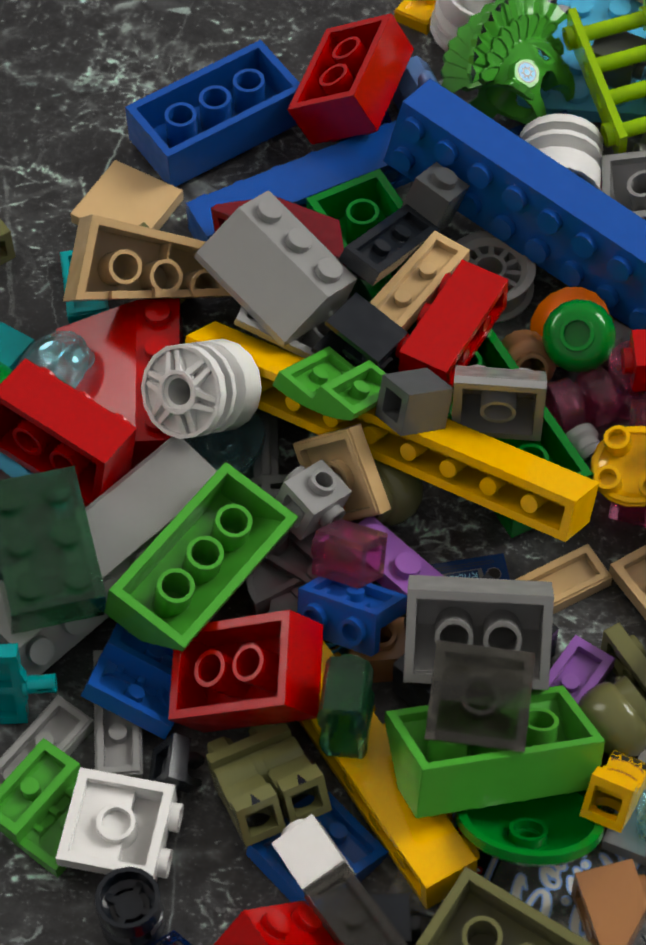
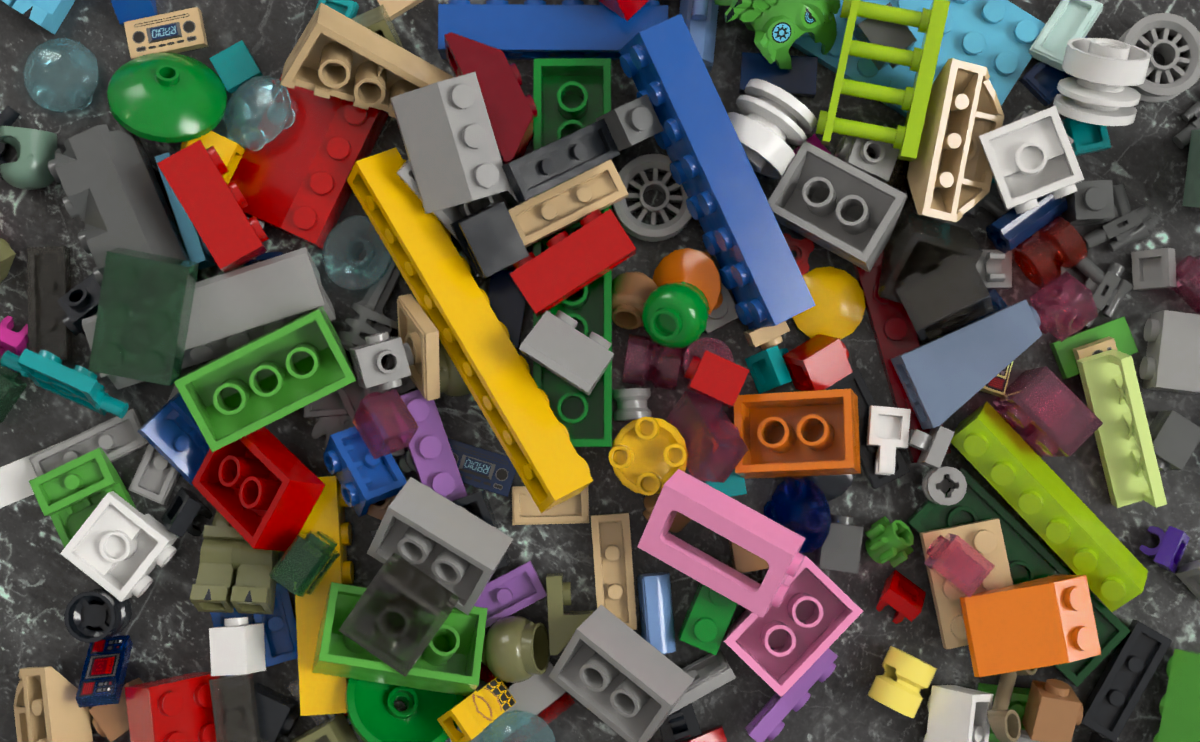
camera: 30 degrees right, 30 degrees up
(201, 388) = (339, 223): white wheel -> none
(331, 385) = (439, 285): bright green slope -> none
(414, 401) = (487, 338): dark grey brick -> none

